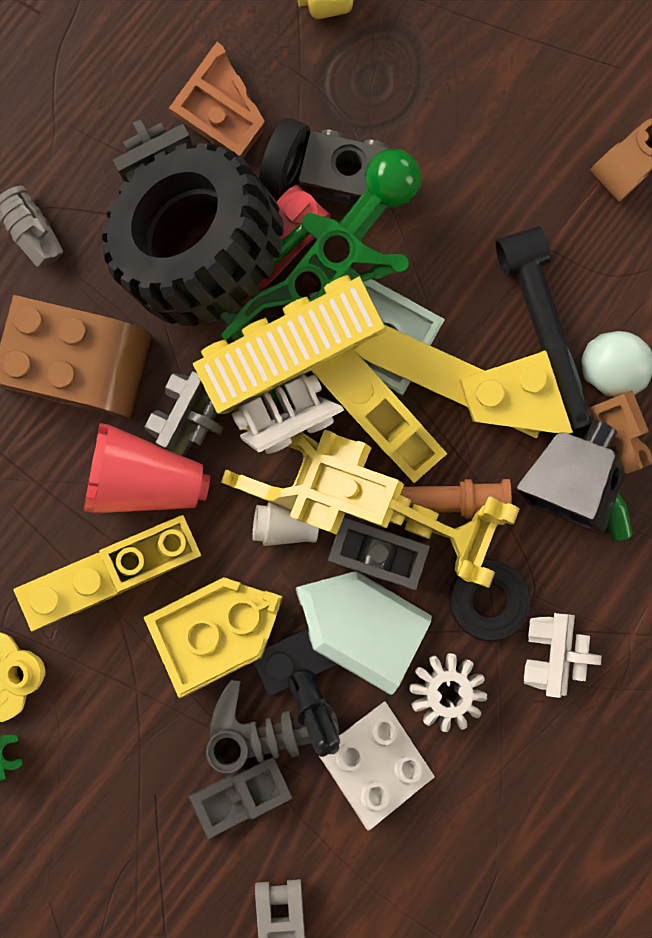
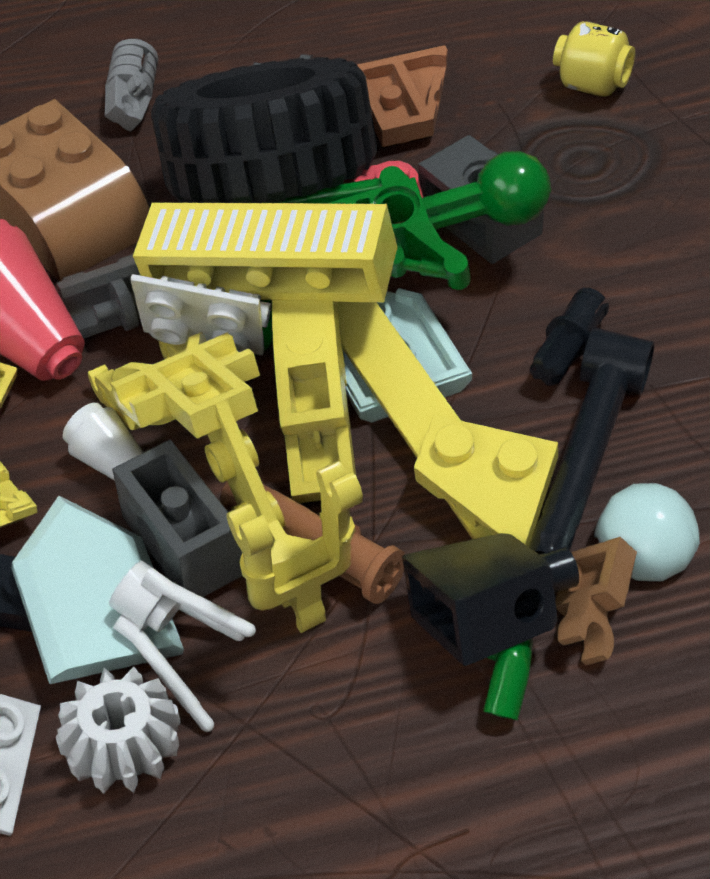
camera: 40 degrees right, 35 degrees down
(284, 156) = (415, 119): black tyre -> none
(408, 617) = (152, 600): none -> white plant
(480, 250) = (568, 336): none -> black axle
(502, 625) = (276, 712): black tyre -> none
(554, 674) = (295, 785): white hips -> none

